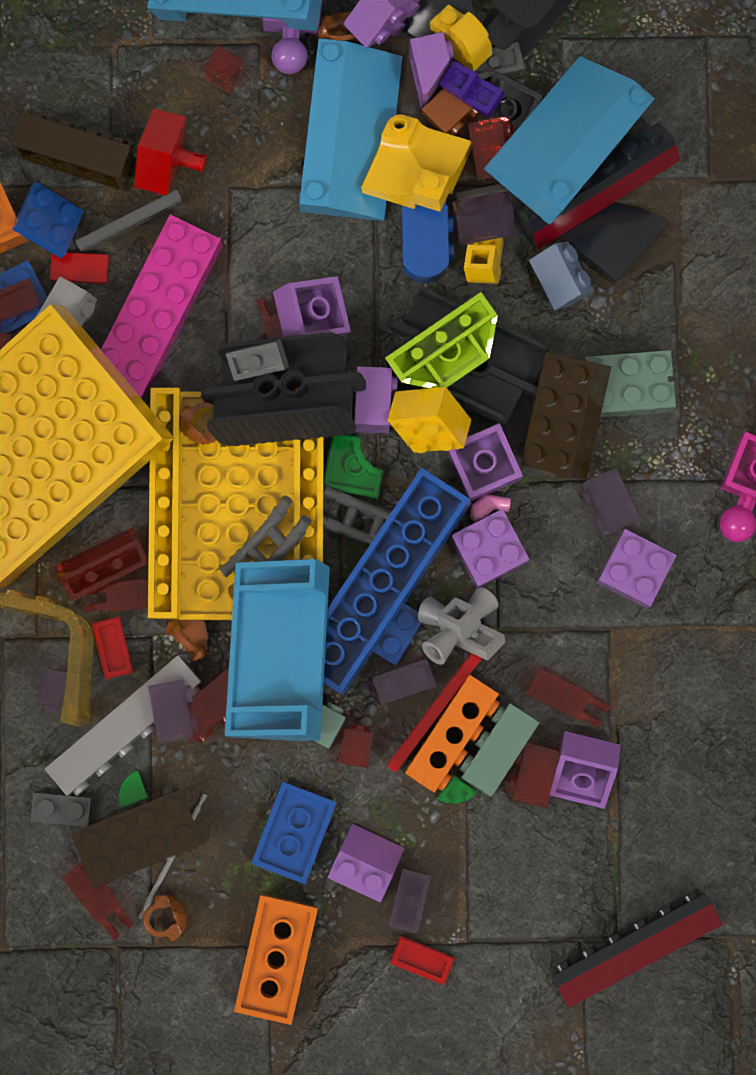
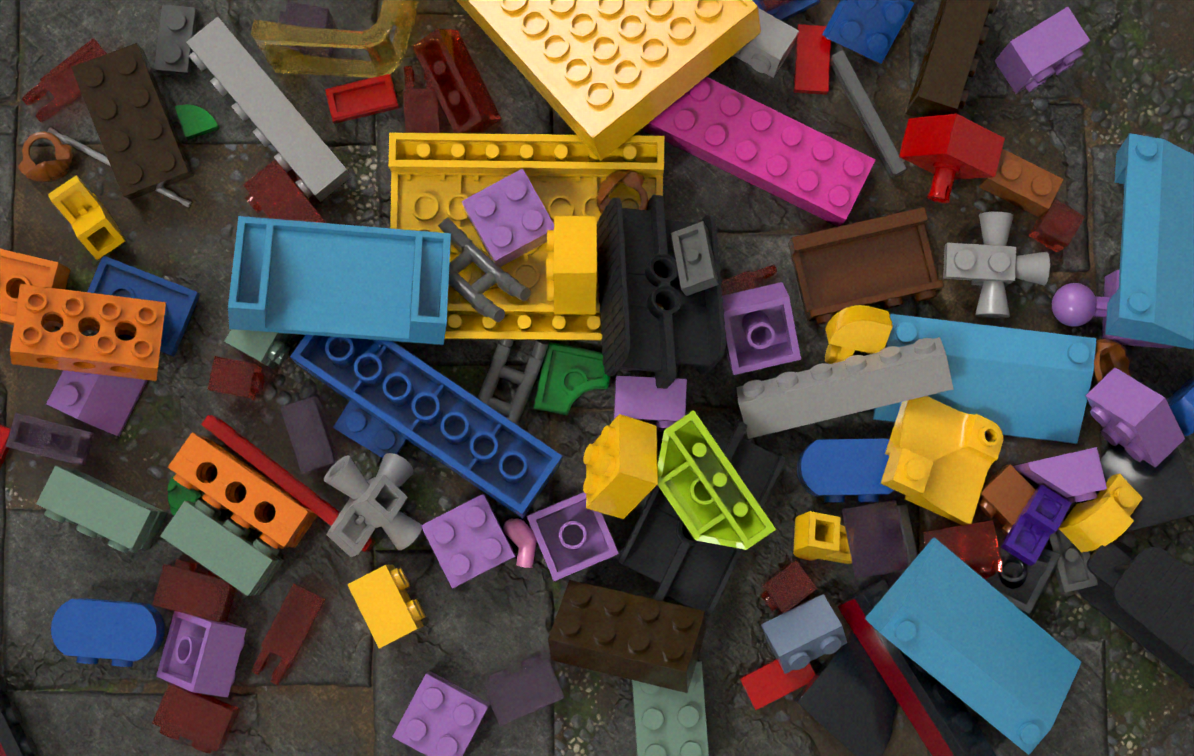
camera: 90 degrees right, 0 degrees up
(76, 76) = (1042, 51): none -> medium lavender brick
(172, 711) = (276, 160): clear purple brick -> none
(189, 93) = (1022, 184): none -> dark orange brick
(191, 635) = (370, 185): dark orange piece -> none
(220, 516) = (509, 218): none -> medium lavender brick
(220, 875) = (87, 216): none -> yellow brick
(256, 119) = (994, 265): none -> light grey brick
(257, 225) = (865, 265): none -> reddish brown panel
(263, 459) = (572, 264): none -> yellow brick
(306, 852) = (85, 311): none -> orange brick
(312, 232) = (857, 329): none -> yellow brick
(361, 240) = (844, 387): none -> light grey brick
(468, 853) = (100, 510): none -> sand green piece
(523, 290) = (786, 587): none -> clear red brick
(544, 613) = (386, 604): none -> yellow brick
(567, 847) = (107, 630): none -> blue brick
(601, 303) = (771, 682): none -> red tile
(637, 772) = (196, 718): none -> clear red brick

